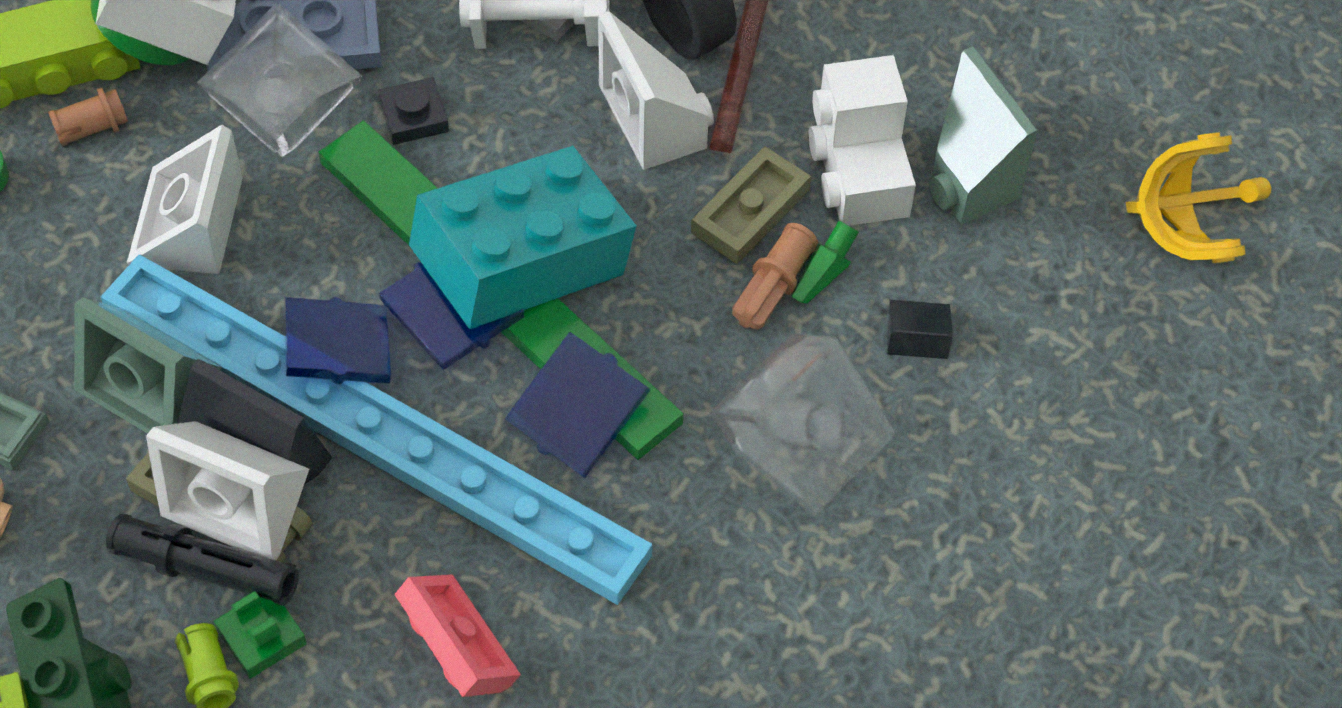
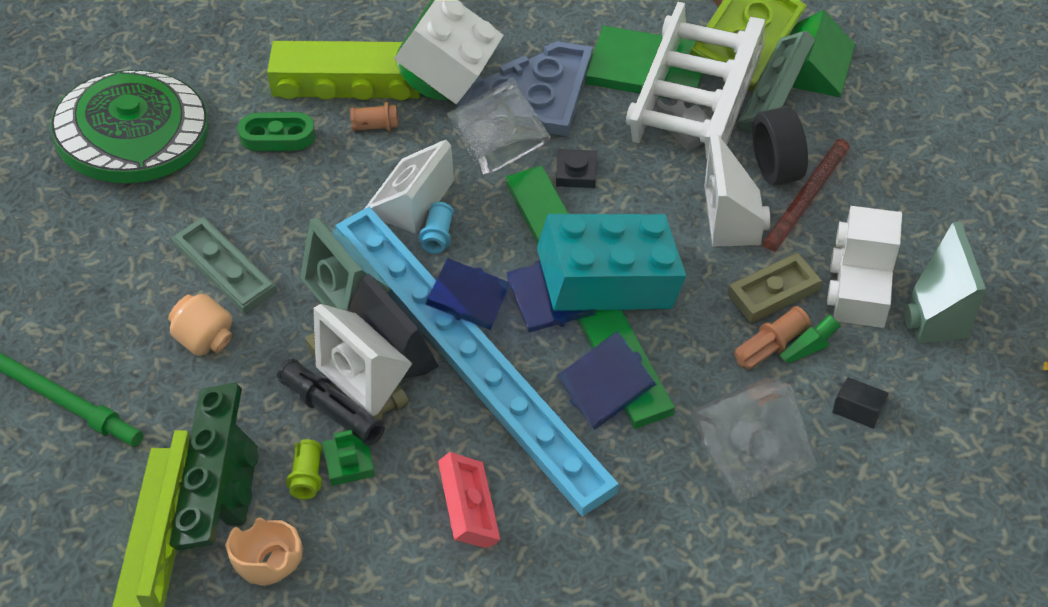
camera: 25 degrees right, 5 degrees down
(250, 257) = (437, 228): none -> medium azure pin

